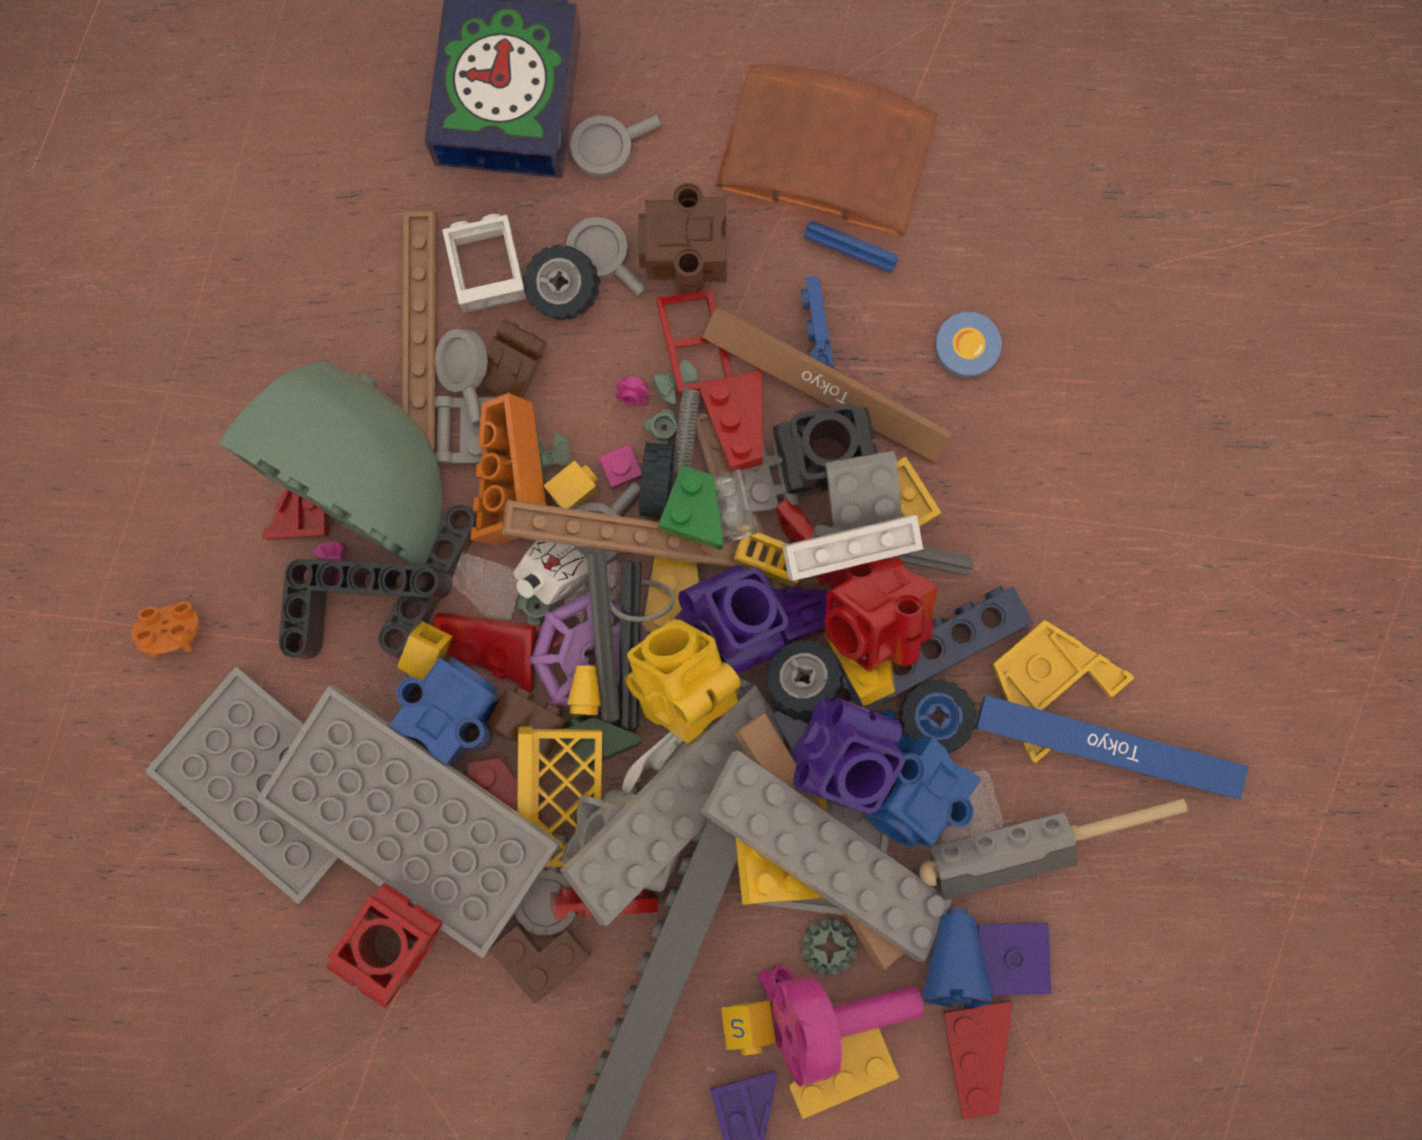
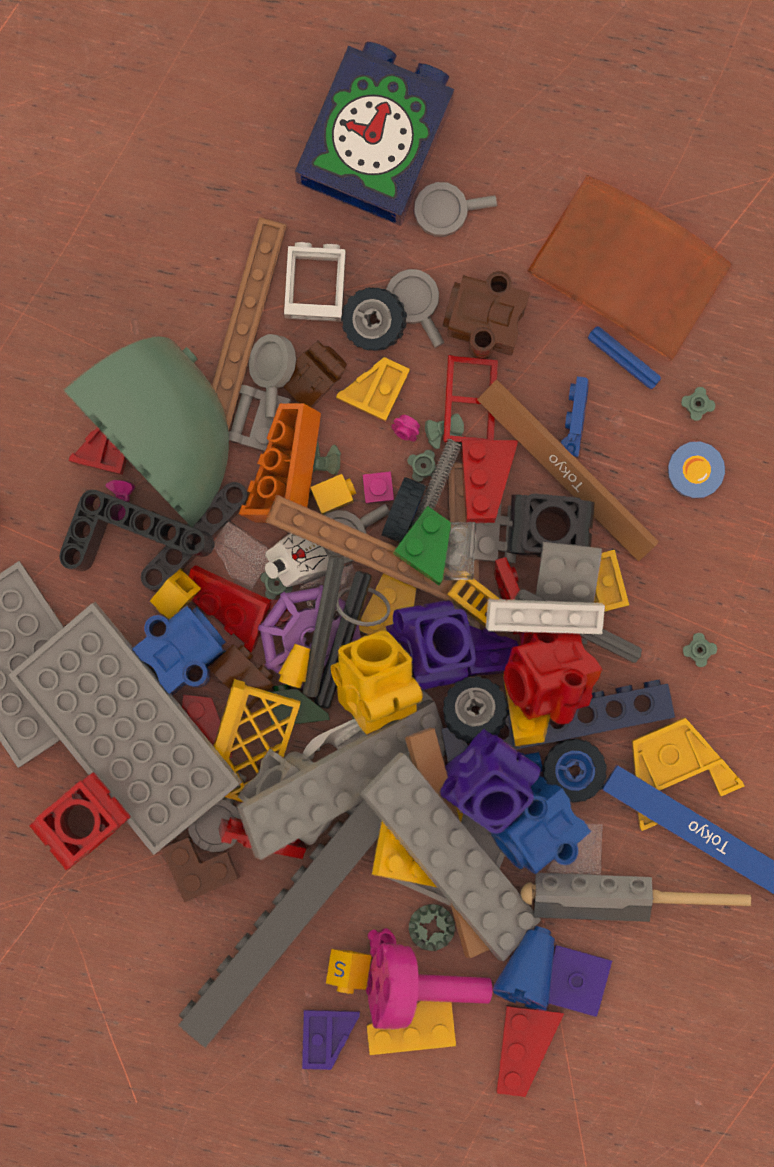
camera: 15 degrees right, 5 degrees up
(587, 359) = (376, 389): none -> yellow wing
(947, 282) = (690, 403): none -> sand green plate
(1026, 542) = (699, 658): none -> sand green plate

